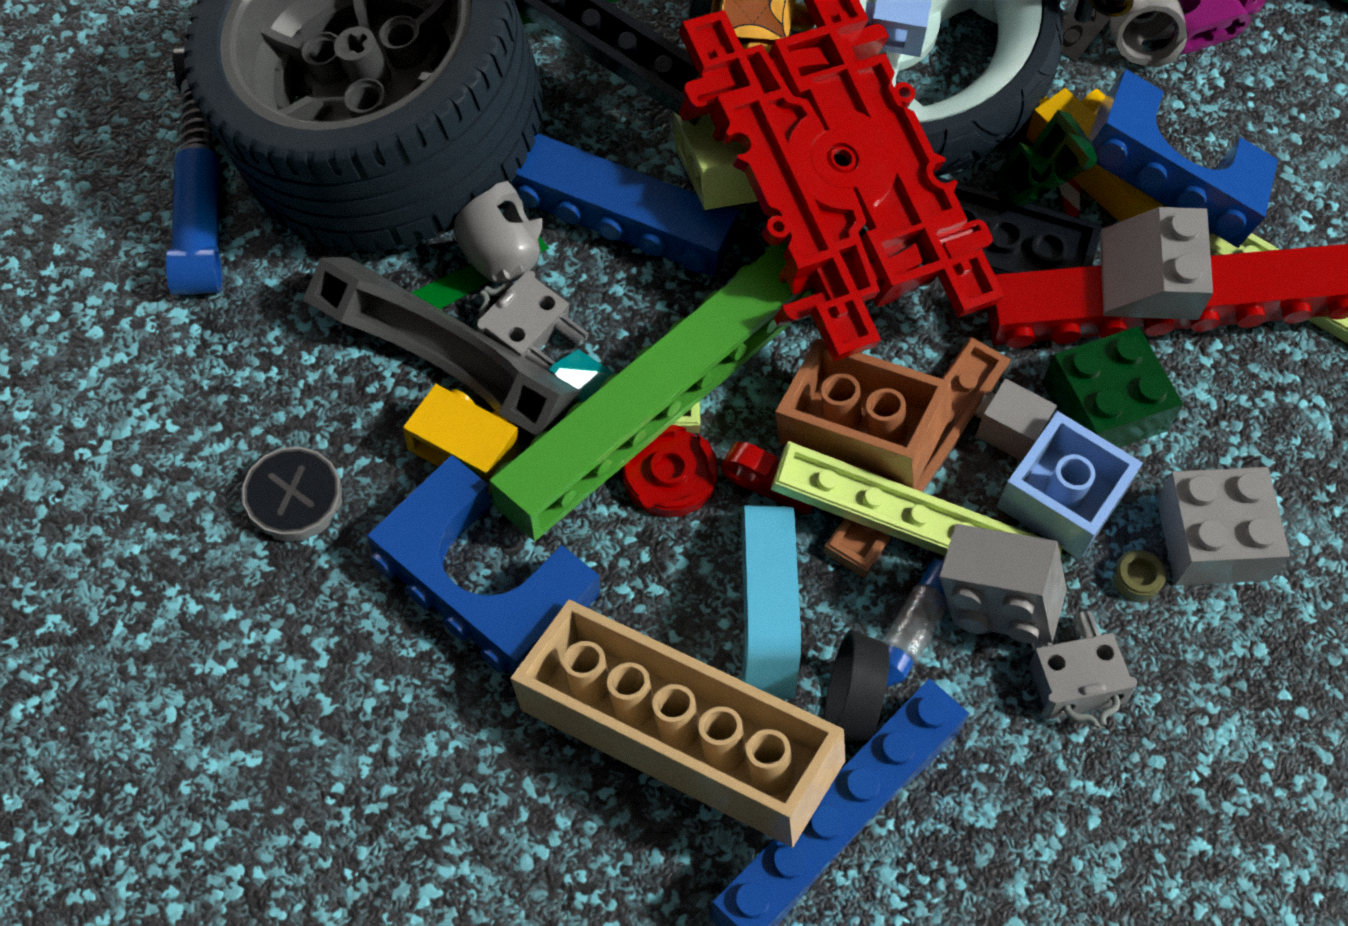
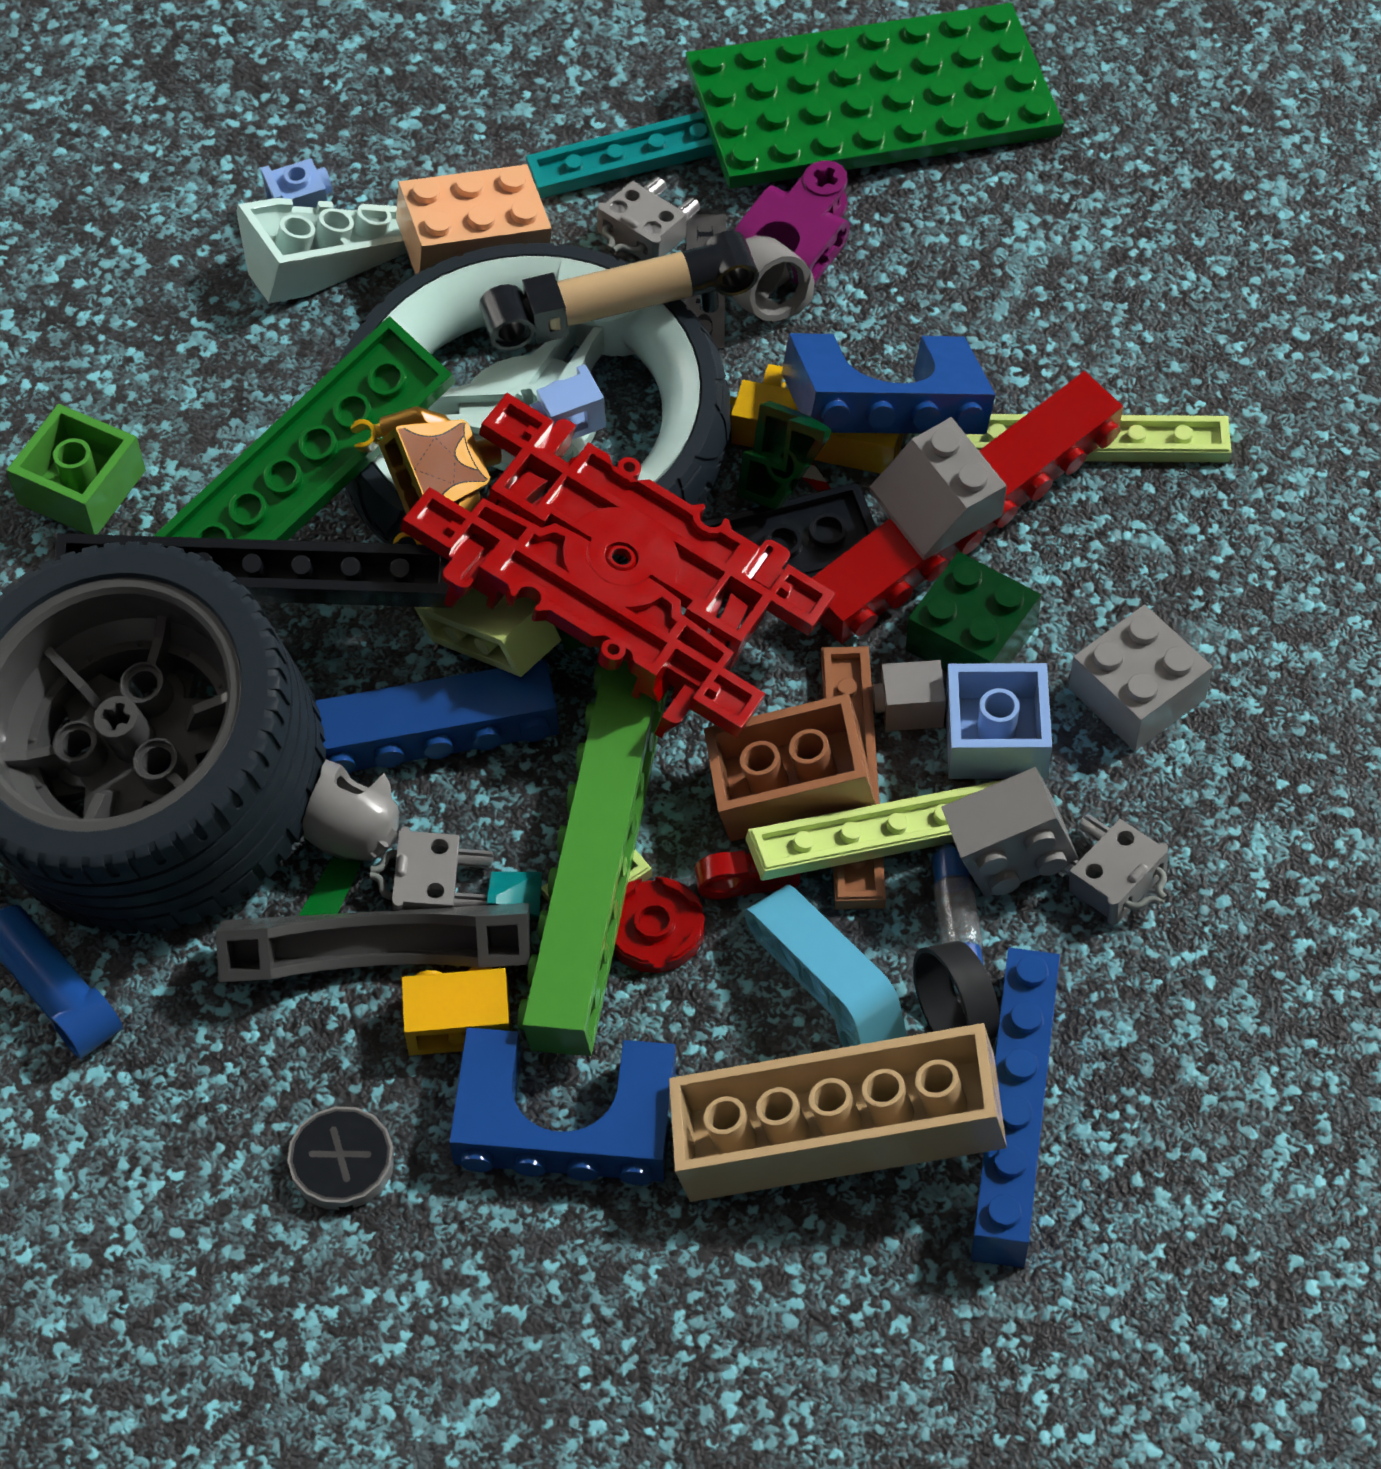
camera: 30 degrees left, 5 degrees down
(1139, 575) = (1103, 761): olive tile -> none

